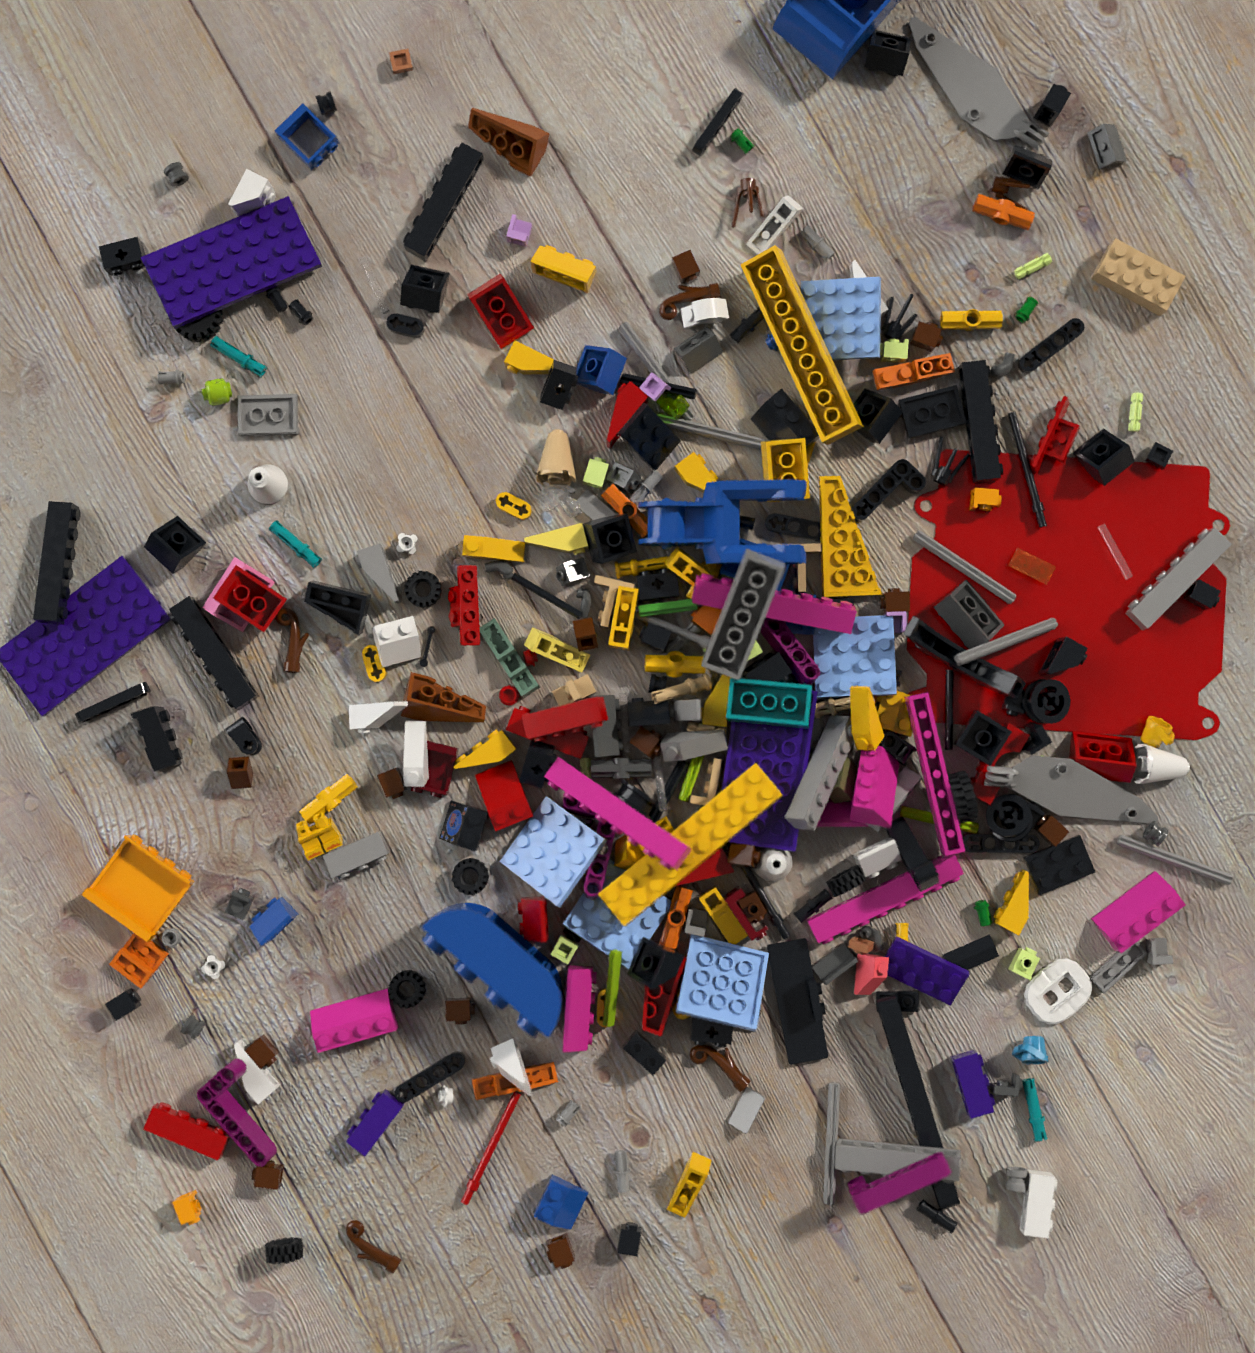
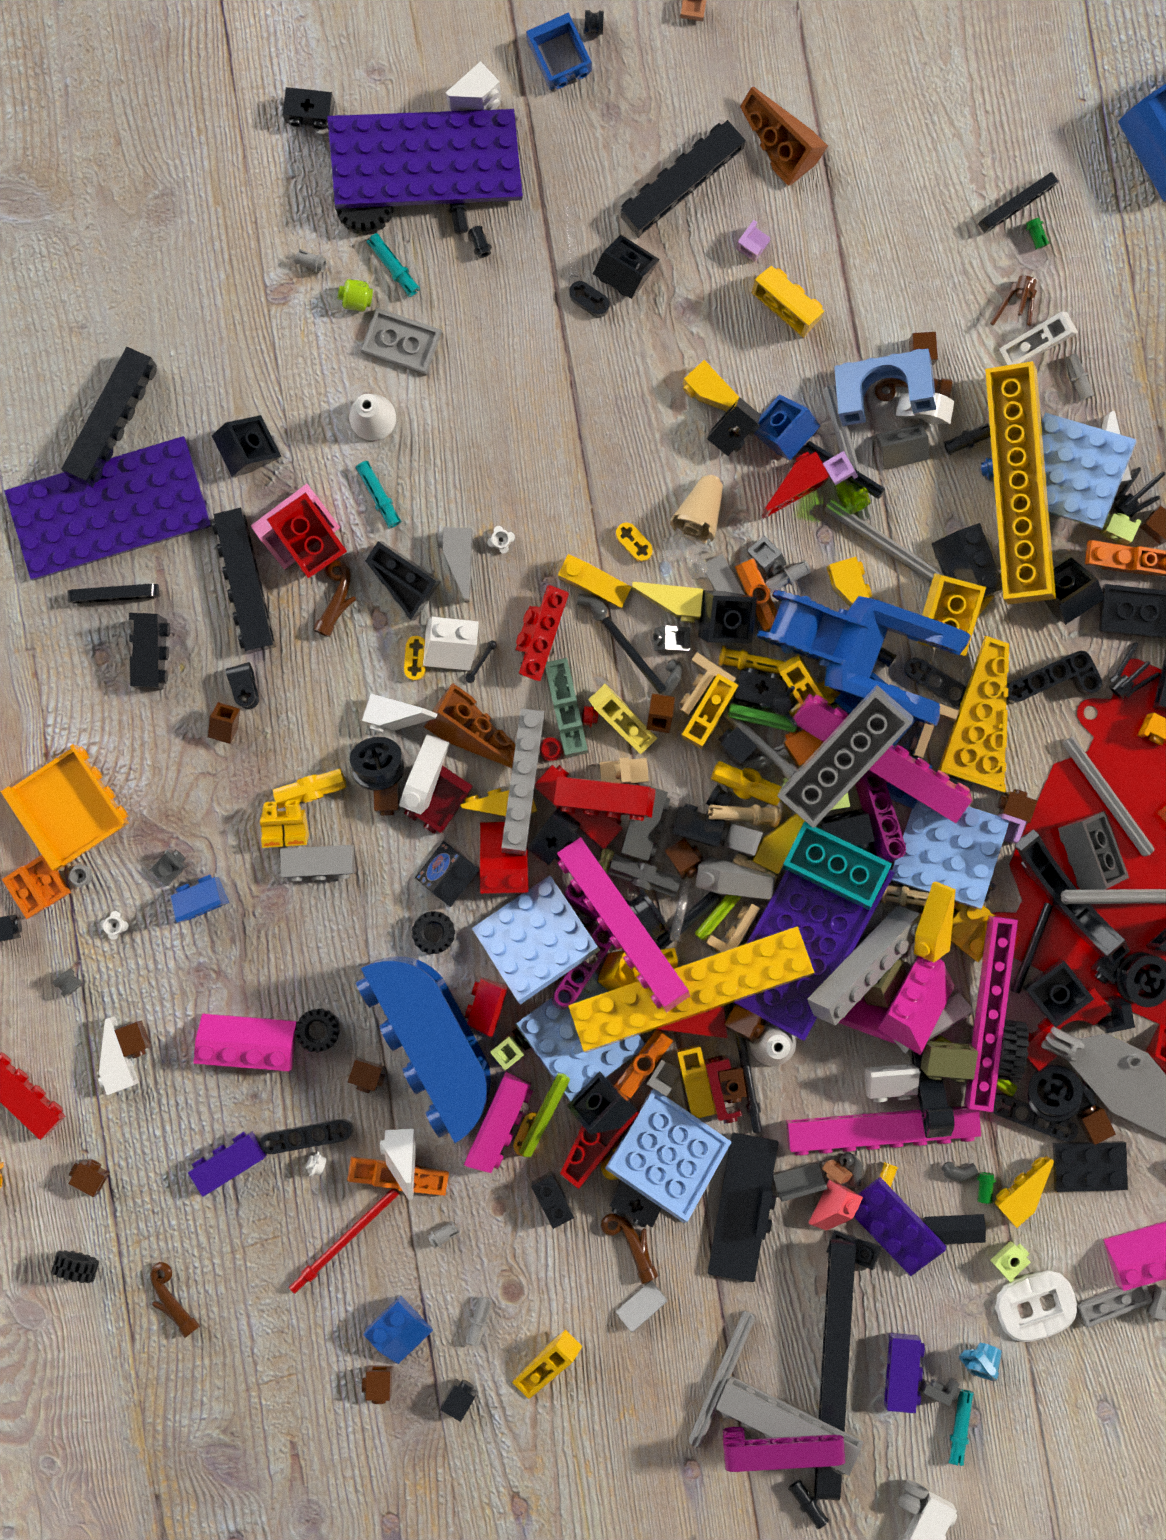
camera: 25 degrees right, 0 degrees up
(176, 174) = (400, 39): dark grey wheel -> none
(232, 1115) = (74, 1098): magenta beam -> none
(366, 766) = (365, 768): none -> black wheel
(410, 589) = (500, 582): black tyre -> none
(496, 730) = (522, 782): none -> light grey arch
(500, 311) = (700, 322): red slope -> none
(596, 473) = (738, 540): yellowish green brick -> none
(641, 309) = (856, 378): none -> medium blue arch
(649, 436) = (813, 521): black plate -> none
(678, 592) = (782, 705): none -> black plant
(813, 905) = (800, 1108): black pin -> none
(846, 881) = (847, 1094): black tyre -> none
(899, 749) = (960, 970): black piece -> none
(915, 823) = (949, 1060): none -> olive brick
(957, 910) = (959, 1174): none -> dark grey arm

